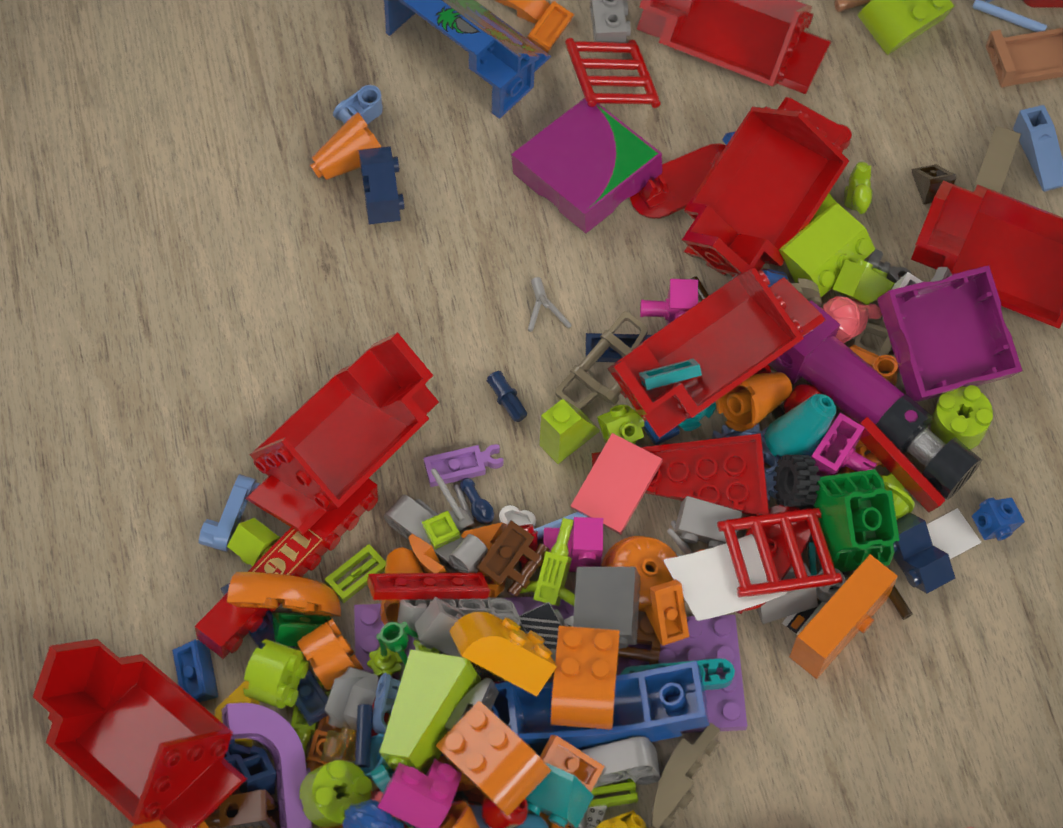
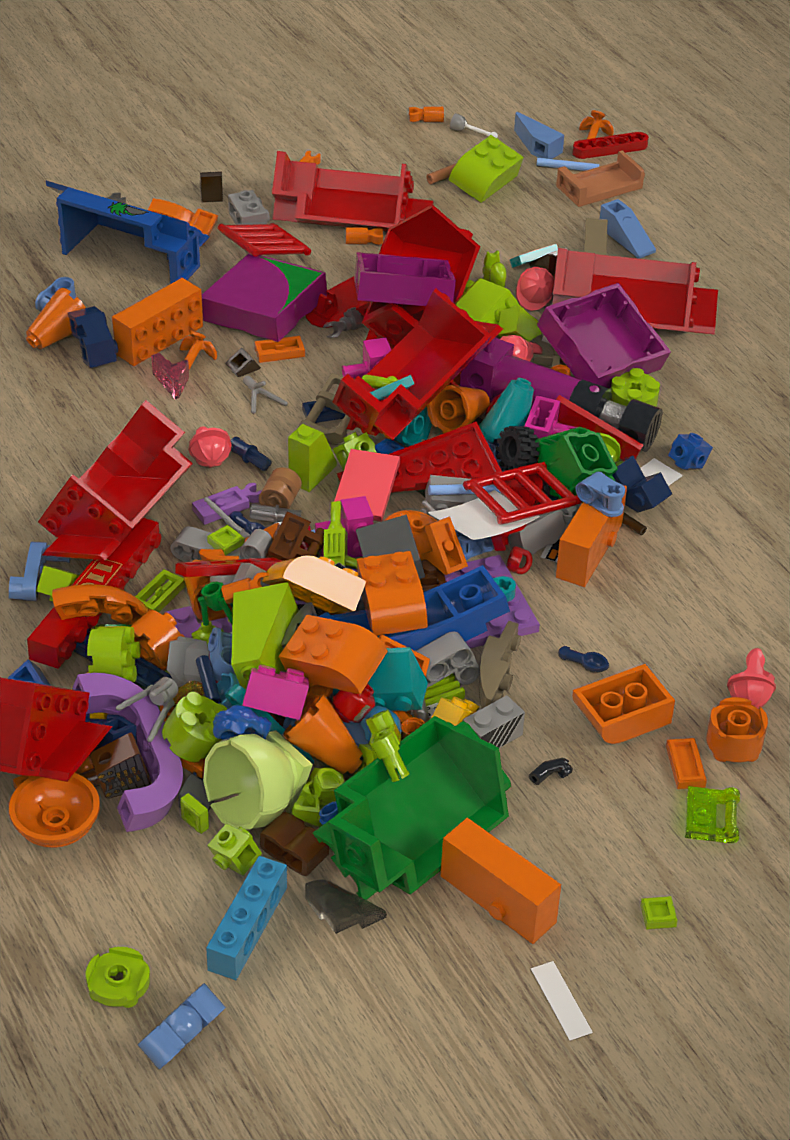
camera: 15 degrees left, 20 degrees down
(309, 744) = (160, 694): none -> light grey plant
(426, 642) = (242, 585): none -> orange bar
(454, 261) = (170, 375): none -> clear pink slope
(457, 179) = (158, 321): none -> orange brick
(462, 381) = (210, 446): none -> coral piece
(494, 218) = (194, 344): none -> orange plant
(509, 494) = (270, 513): none -> flat silver axle
(525, 461) = (280, 488): none -> medium nougat wheel
(538, 254) = (242, 363): none -> dark brown slope
(585, 245) = (284, 349): none -> orange tile
(666, 353) = (377, 382): none -> lime arm
(678, 218) = (351, 320): none -> flat silver piece
(705, 522) = (455, 489): none -> light blue bar
(732, 84) = (363, 235): none -> orange bar
(740, 204) = (401, 278): none -> magenta tile
(749, 627) = (515, 558): none -> red tile
(787, 790) = (591, 660): none -> dark blue piece
(862, 584) = (601, 493): none -> medium blue piece
(902, 217) = (534, 288): none -> coral piece
(919, 163) = (531, 256): none -> tile

